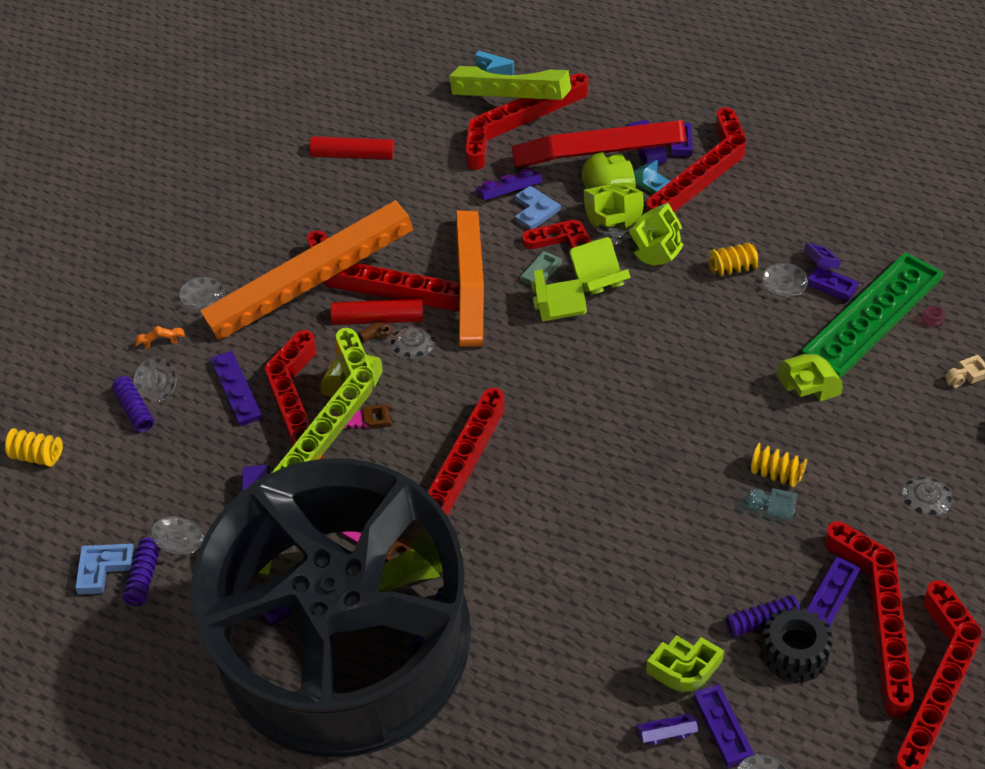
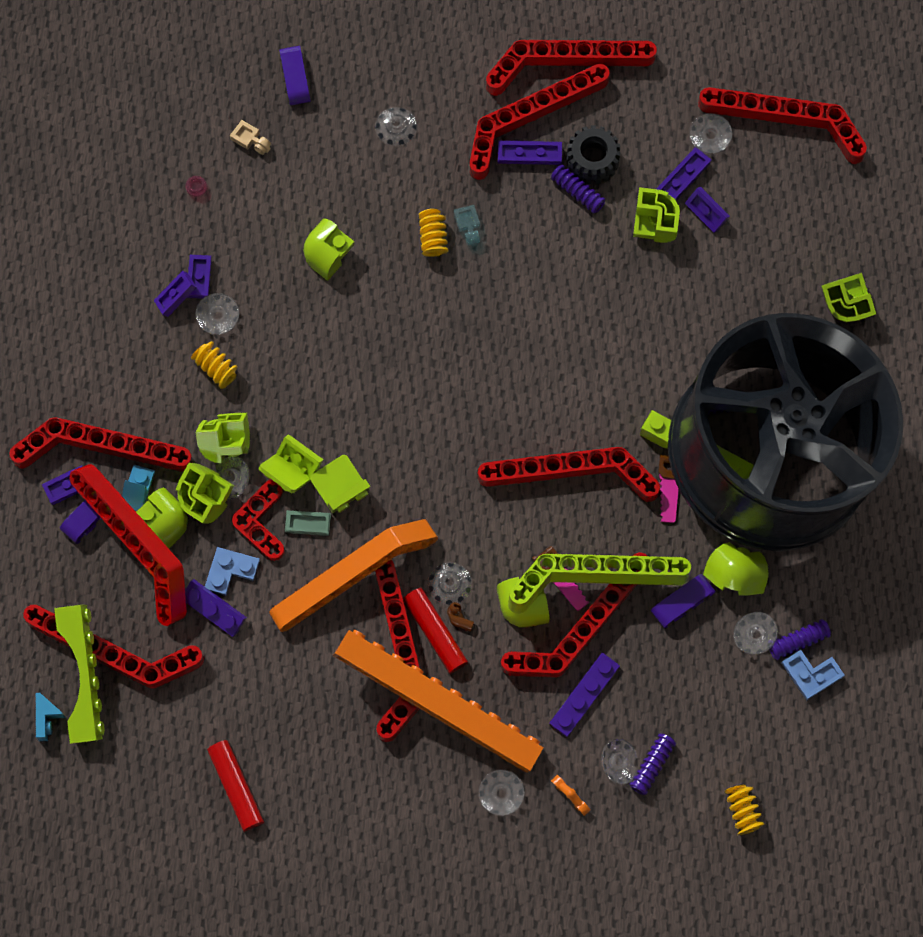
camera: 120 degrees left, 25 degrees up
(874, 313) = (219, 231): green plate -> none

